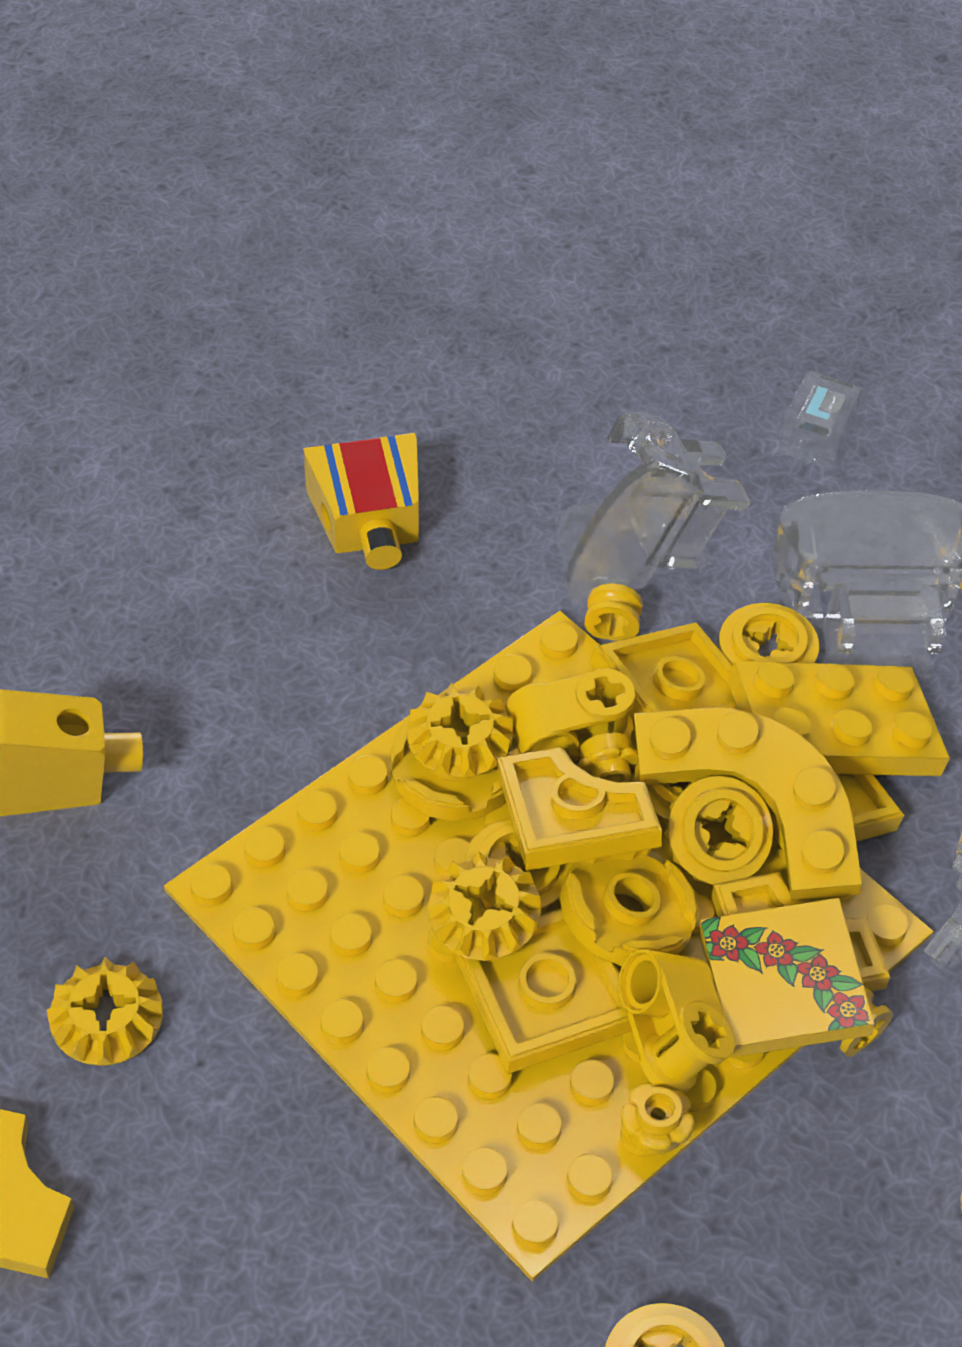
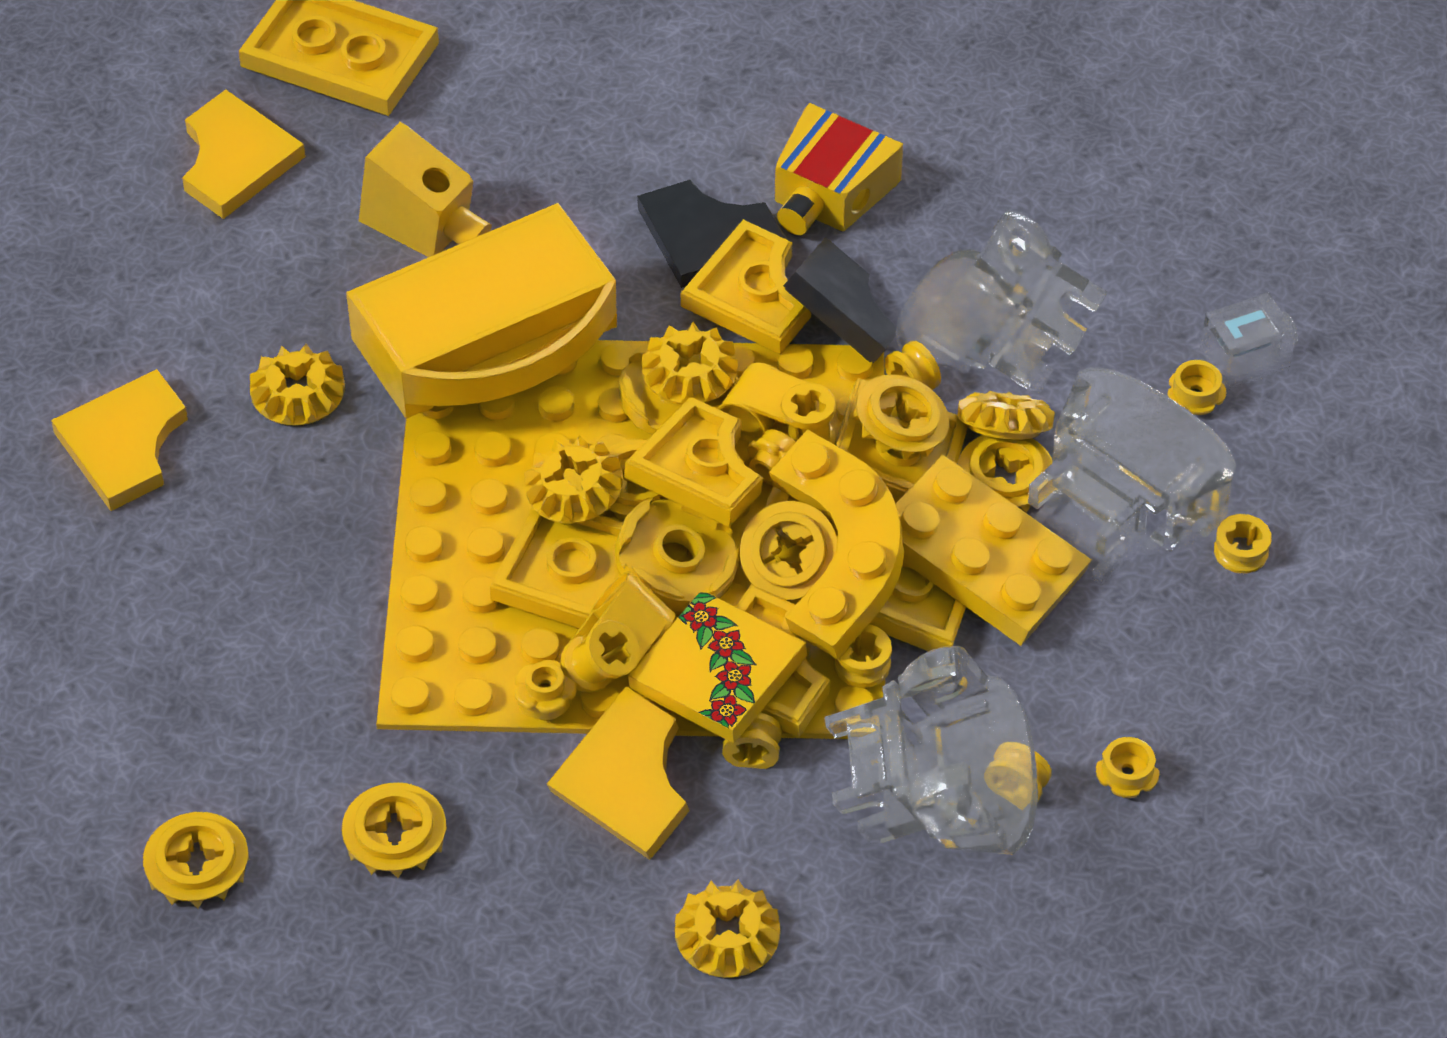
camera: 45 degrees right, 0 degrees up
(247, 818) = (485, 314): none -> yellow piece
(316, 619) = (694, 225): none -> black tile
(415, 639) = (745, 288): none -> yellow tile
(501, 593) = (840, 297): none -> black tile
(655, 636) = (915, 404): none -> yellow gear
(726, 598) = (1005, 415): none -> yellow gear
(793, 1143) = (621, 774): none -> yellow tile
(819, 475) = (1200, 376): none -> yellow plate
(876, 863) = (870, 672): none -> yellow bush

